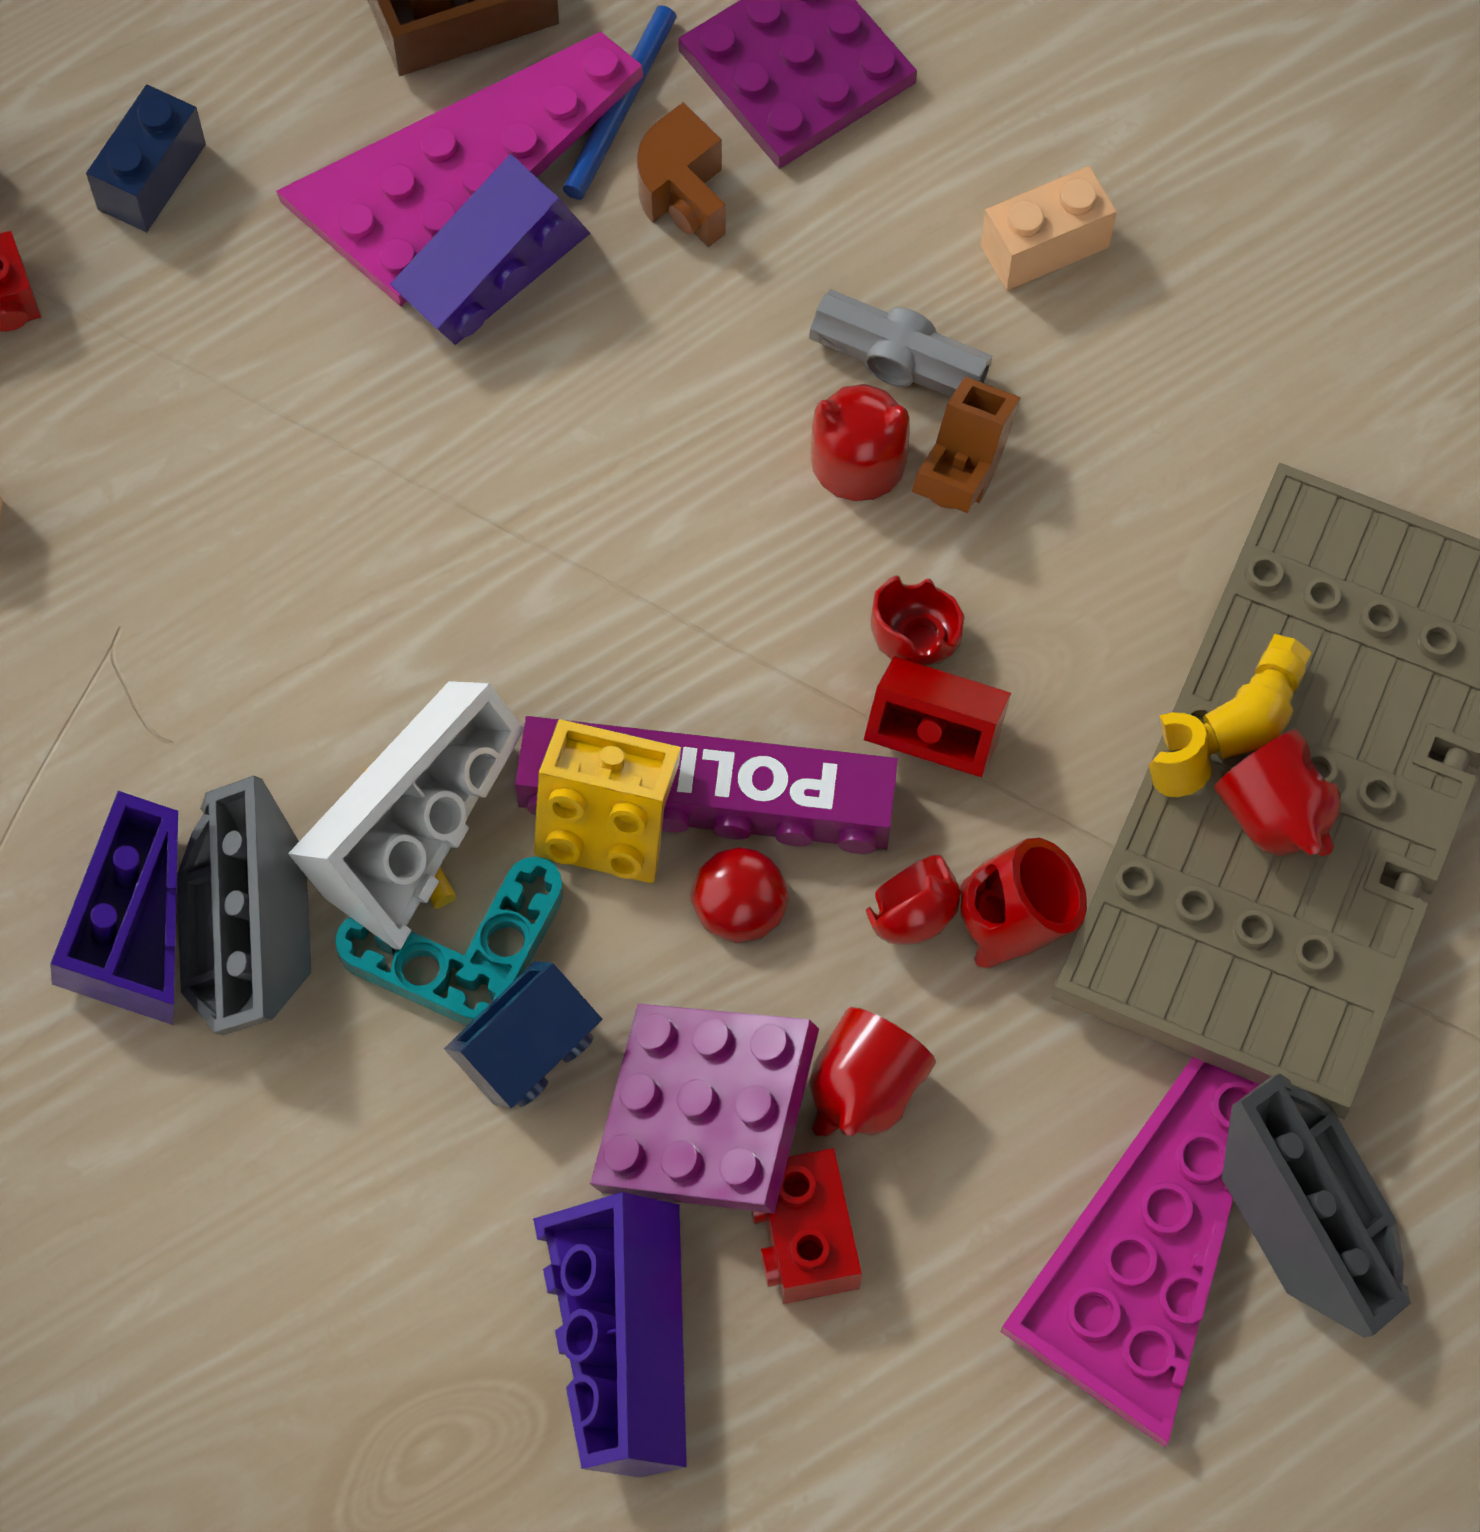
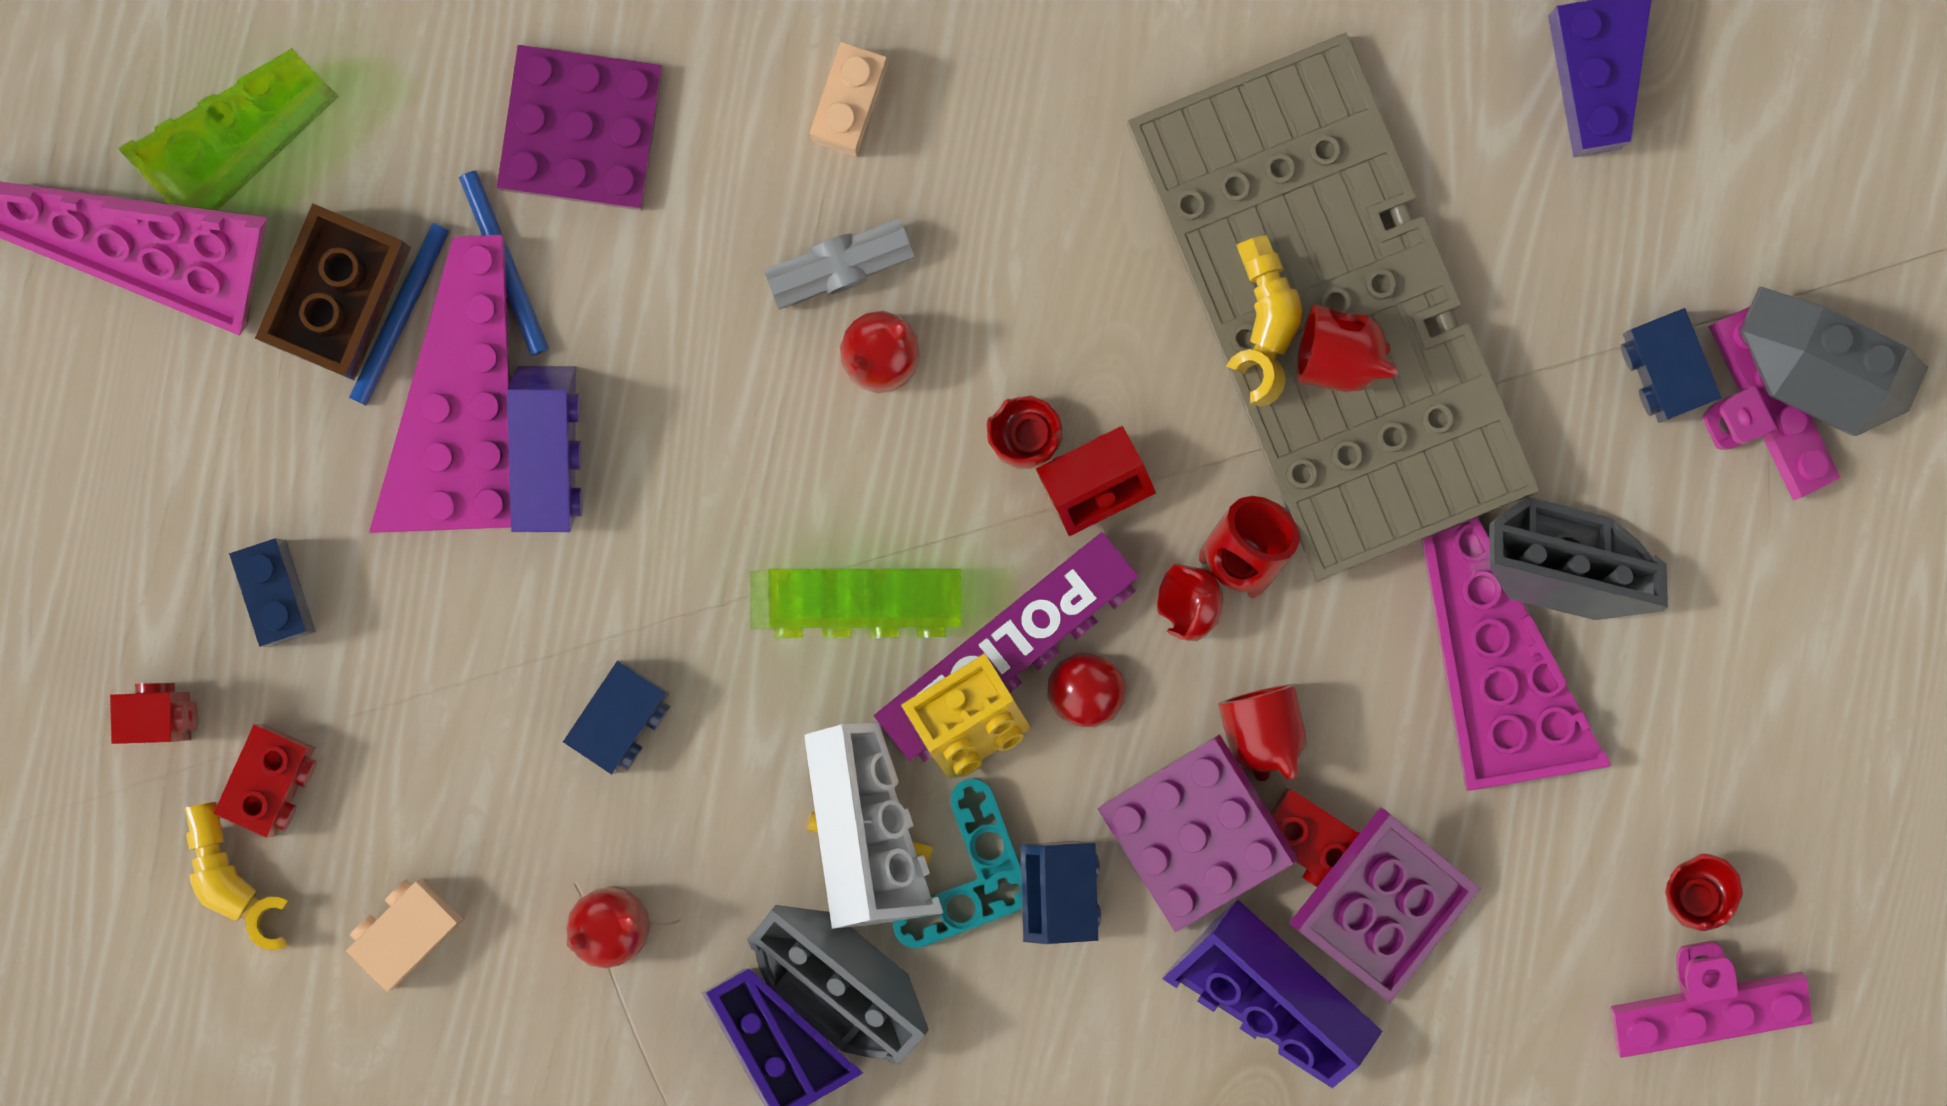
camera: 50 degrees left, 20 degrees up
(104, 671) = (607, 927): none -> red piece
(308, 519) = (617, 718): none -> dark blue brick
(485, 63) = (399, 314): none -> blue bar
(617, 612) = (855, 600): none -> clear neon green wedge
(672, 174) = (583, 280): dark orange brick -> none
(812, 1344) = (1385, 905): none -> magenta plate
(967, 446) = (947, 297): dark orange brick -> none

